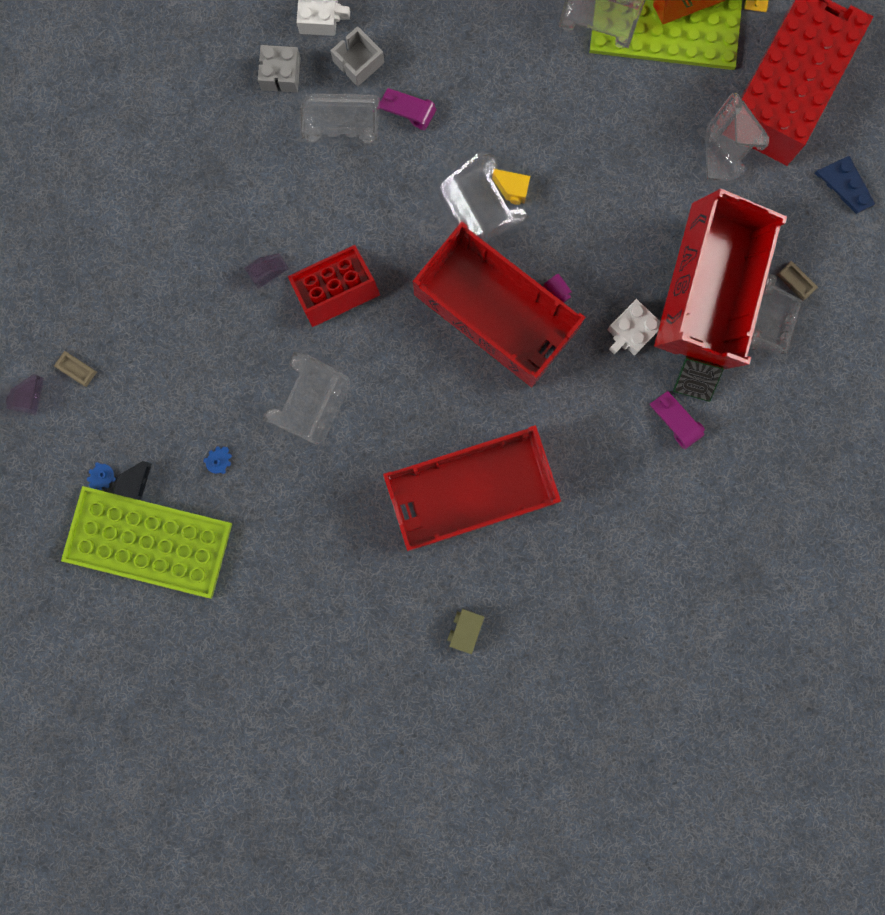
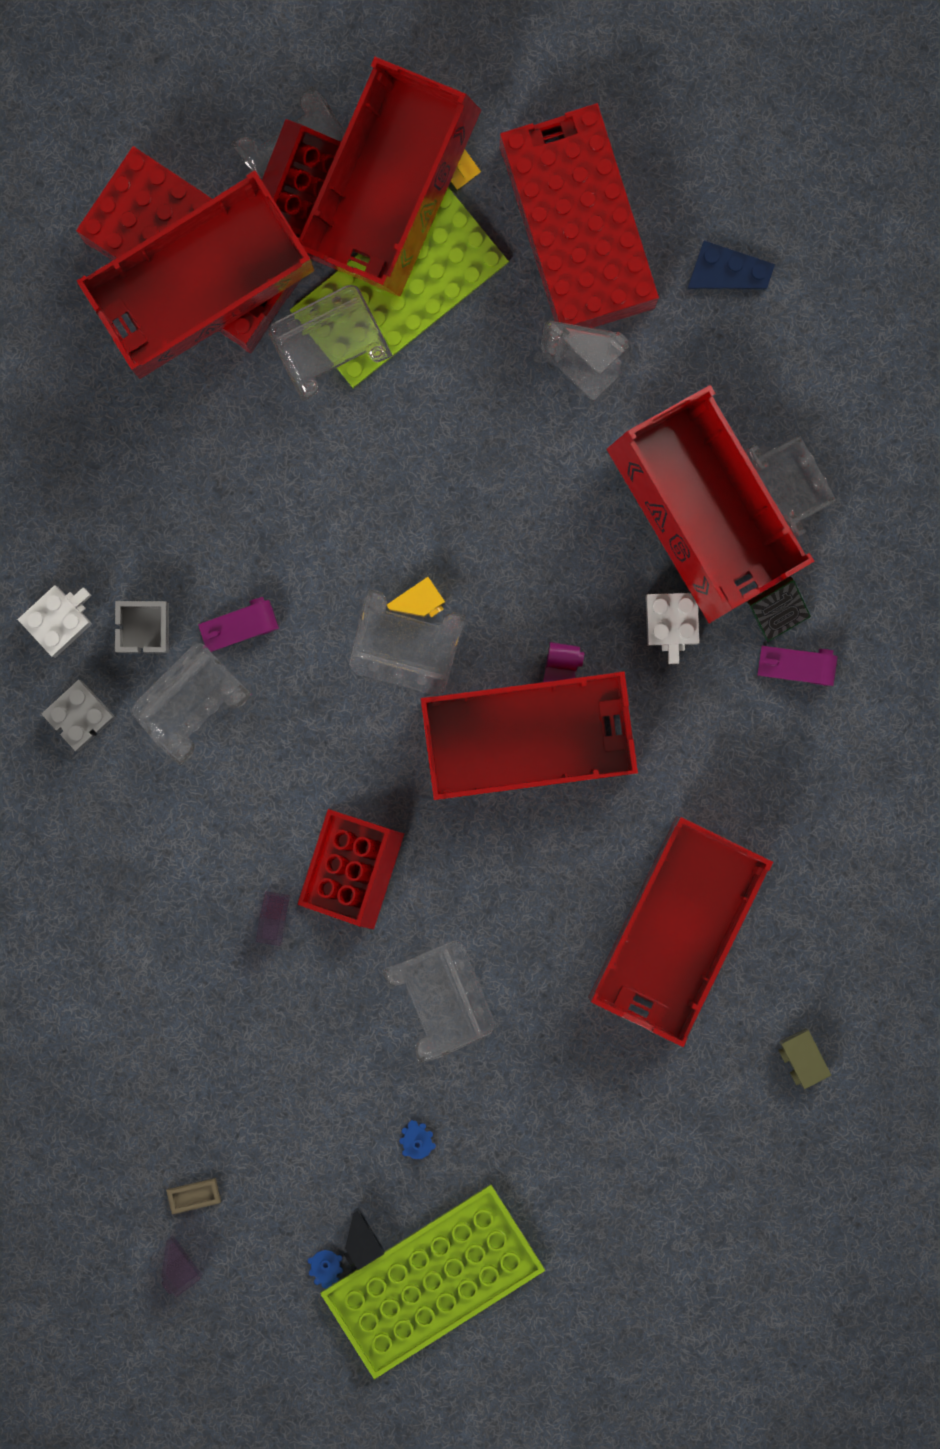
camera: 45 degrees left, 5 degrees up
(797, 281) = (776, 414): dark tan tile -> none

